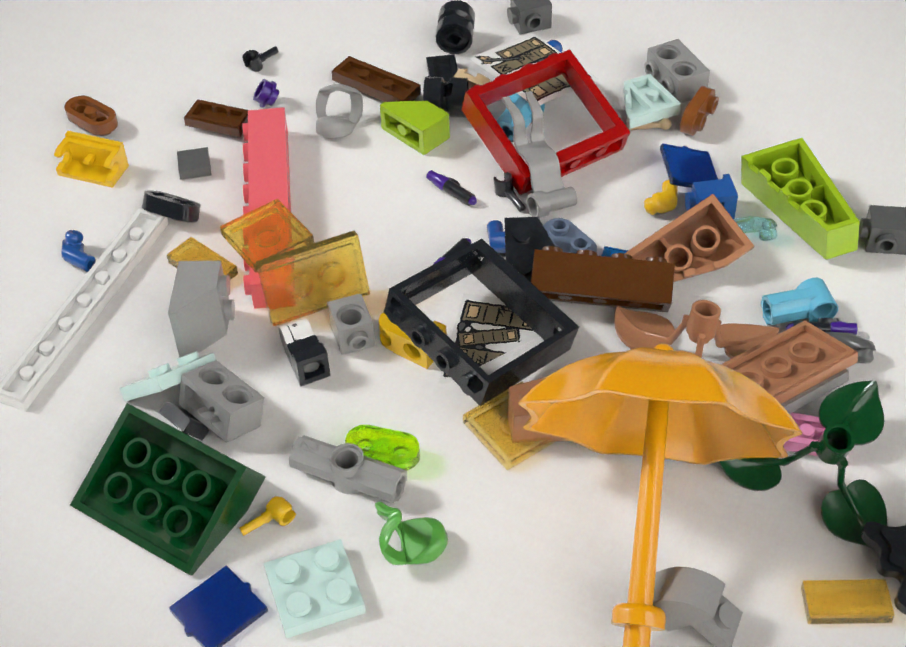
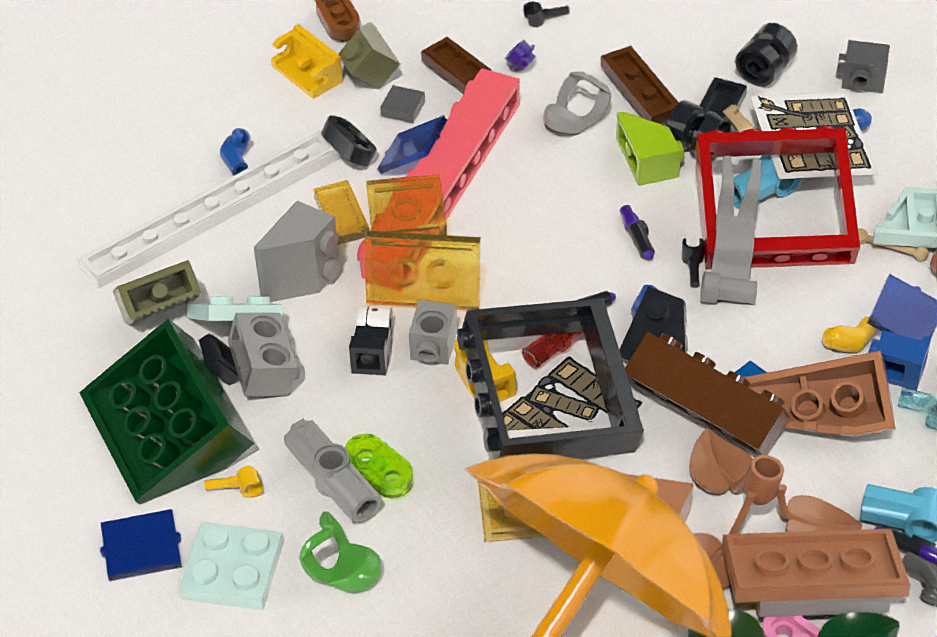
camera: 30 degrees right, 0 degrees up
(91, 389) = (157, 292): none -> olive brick
(144, 135) = (369, 56): none -> olive slope
(229, 188) = (412, 144): none -> clear blue piece
(446, 300) = (547, 346): none -> clear red pin
(568, 236) = (714, 333): sand blue plate -> none

